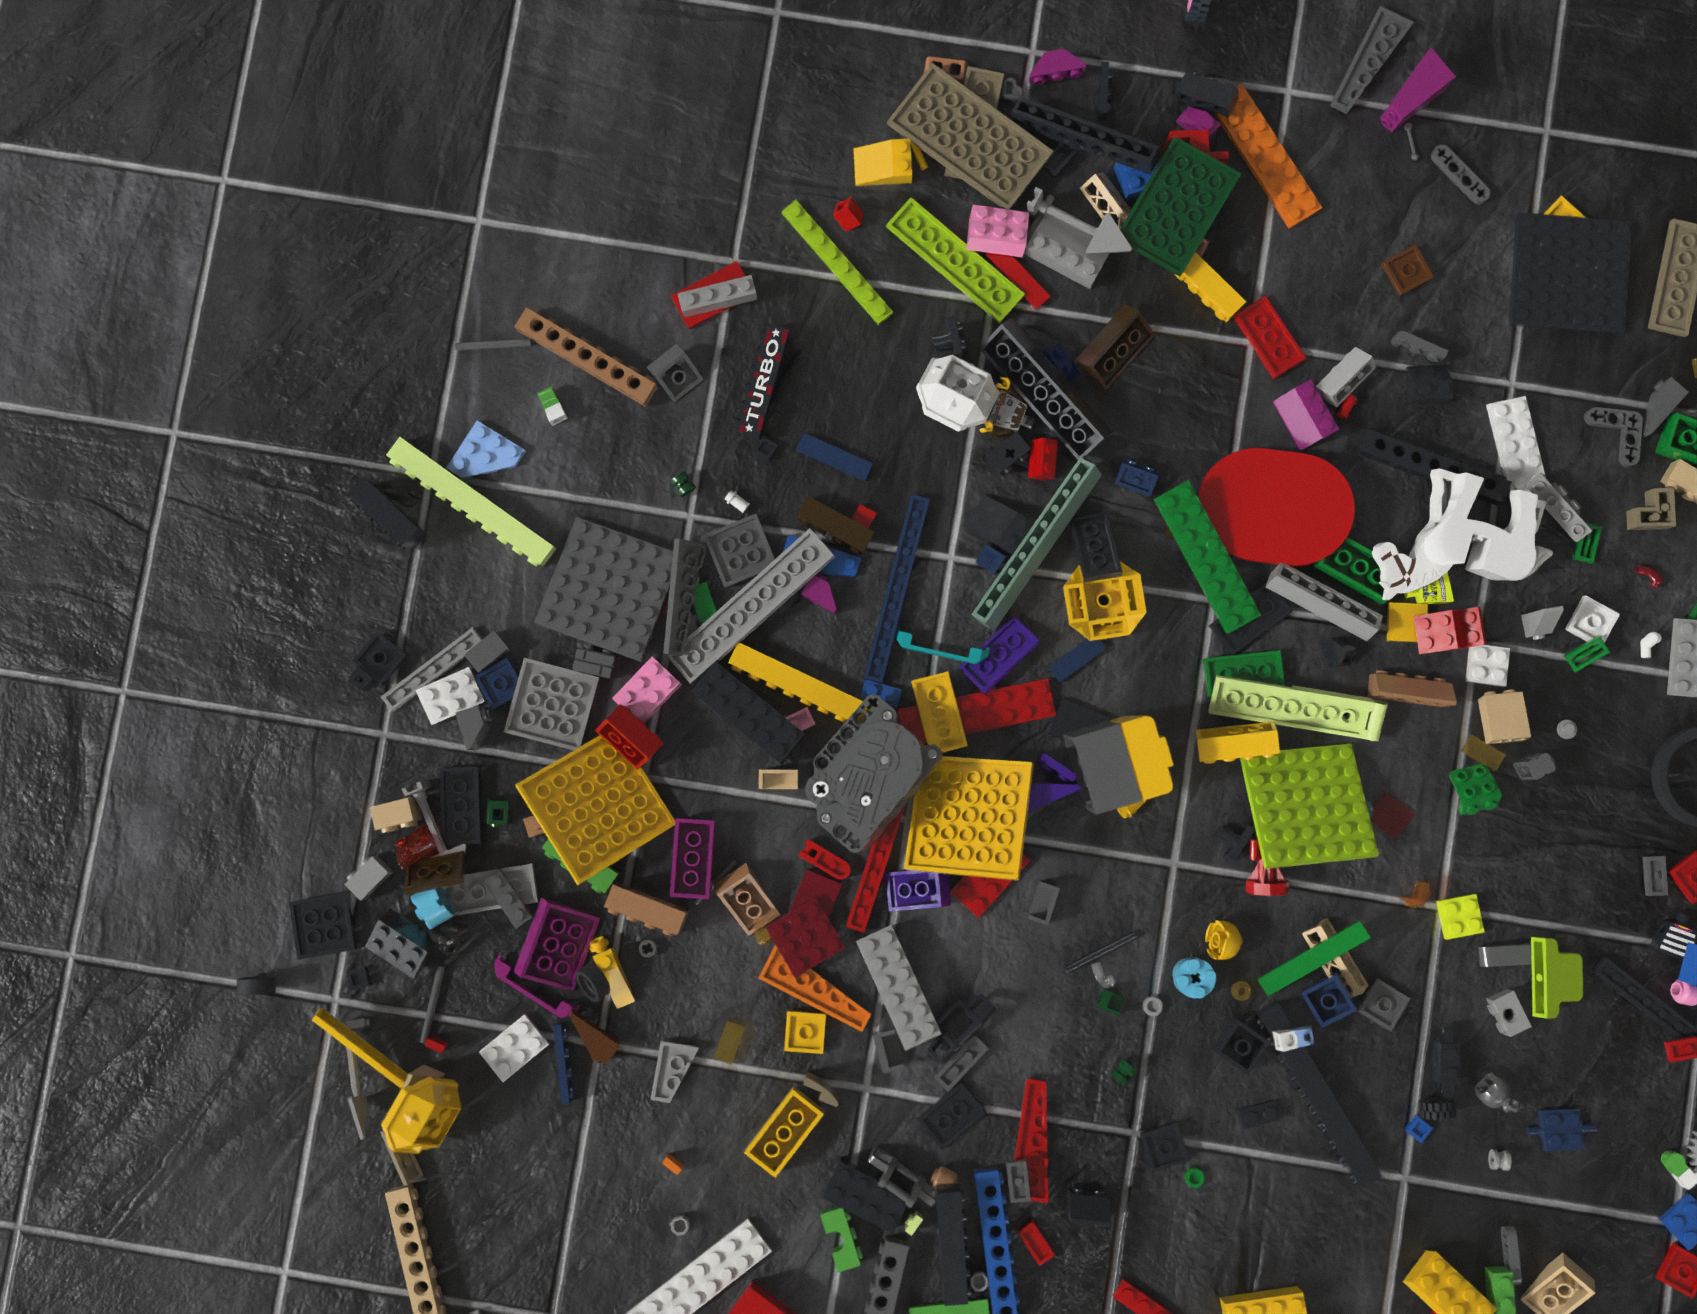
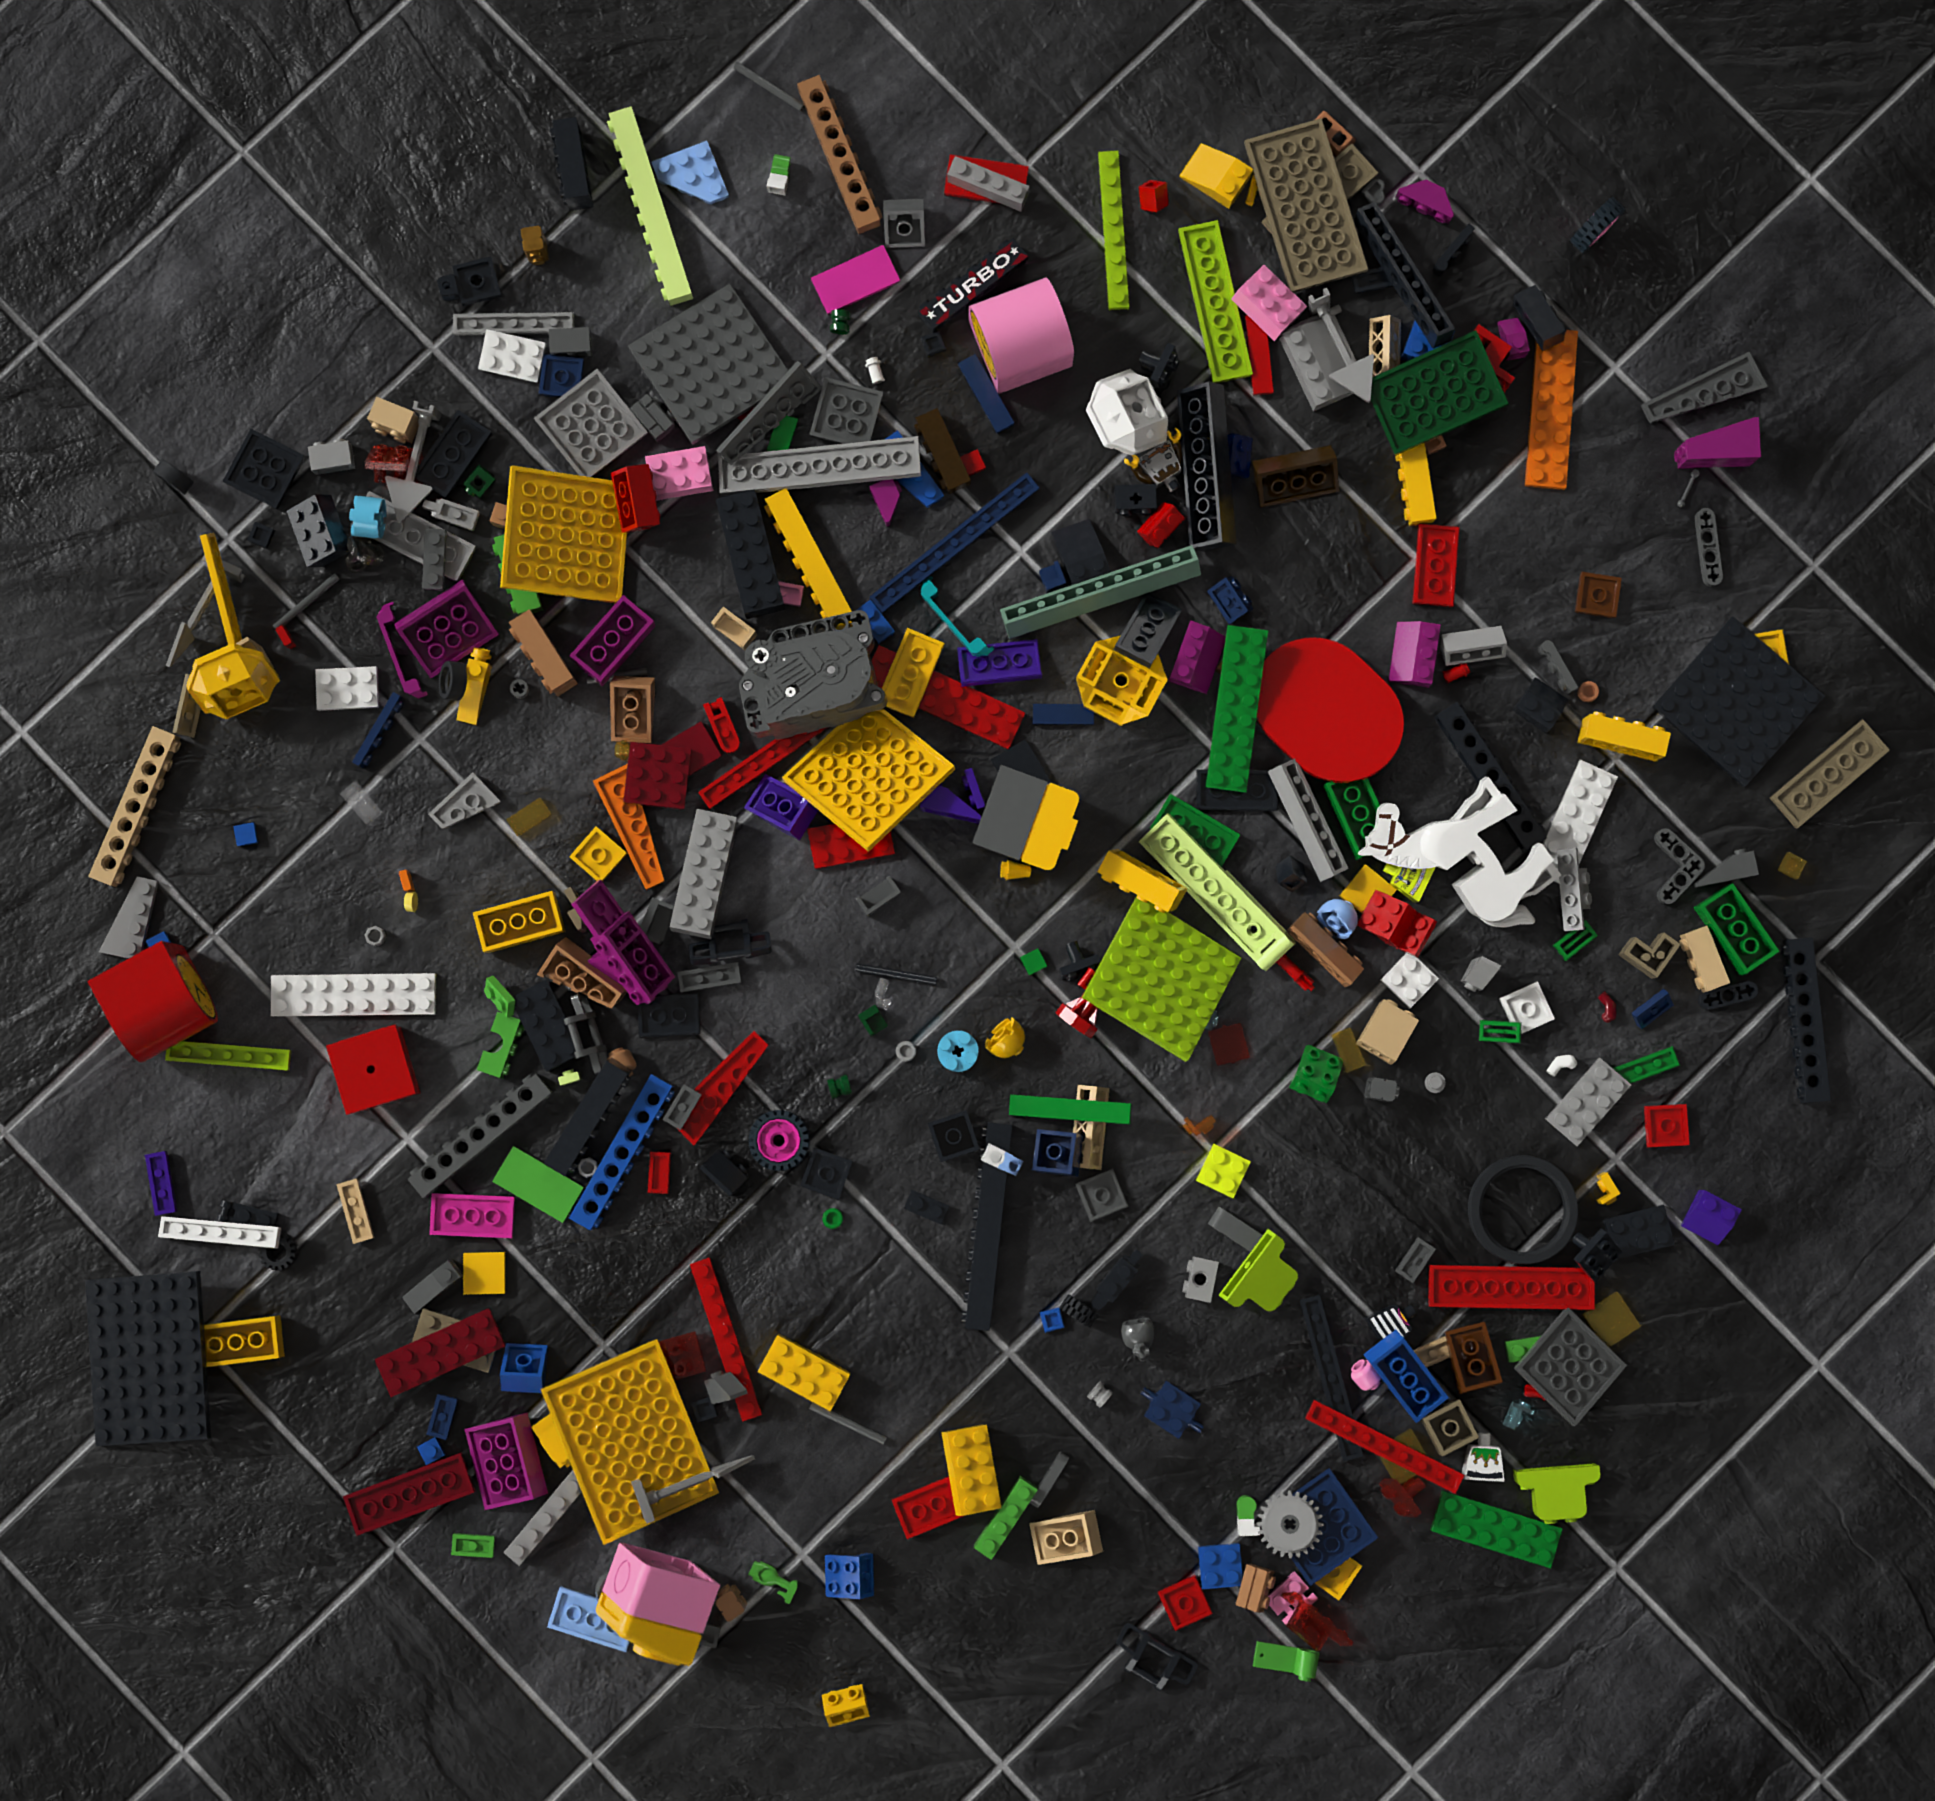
camera: 30 degrees right, 0 degrees up
(404, 597) = (534, 245): none -> pearl gold brick
(435, 873) = (390, 491): dark brown tile -> none
(474, 725) = (513, 395): dark grey slope -> none
(495, 851) = (452, 513): none -> light grey hinge
(520, 1221) = (245, 834): none -> blue tile
(591, 1128) = (361, 802): none -> clear plate
(597, 1041) = (419, 732): reddish brown slope -> none
(670, 443) = (855, 279): none -> dark pink tile
(688, 1177) = (410, 901): none -> light yellow tile
(813, 1201) = (499, 996): none -> bright green plate
(831, 391) = (1022, 335): none -> bright pink brick
(864, 1134) = (570, 967): none -> medium nougat wedge
(880, 1093) = (622, 946): none -> magenta wedge
(1111, 1164) = (762, 1140): none -> wheel
(1145, 539) = (1197, 657): none -> magenta slope
(1197, 864) = (1033, 961): none -> green tile
(1236, 986) = (994, 1088): clear yellow plate -> none
(1402, 657) = (1338, 917): none -> light blue cylinder
(1402, 724) = (1296, 973): none -> red piece
(1455, 348) = (1588, 691): none -> nougat tile
(1510, 362) = (1624, 737): none -> yellow brick
(1685, 551) = (1652, 1009): none -> dark blue plate

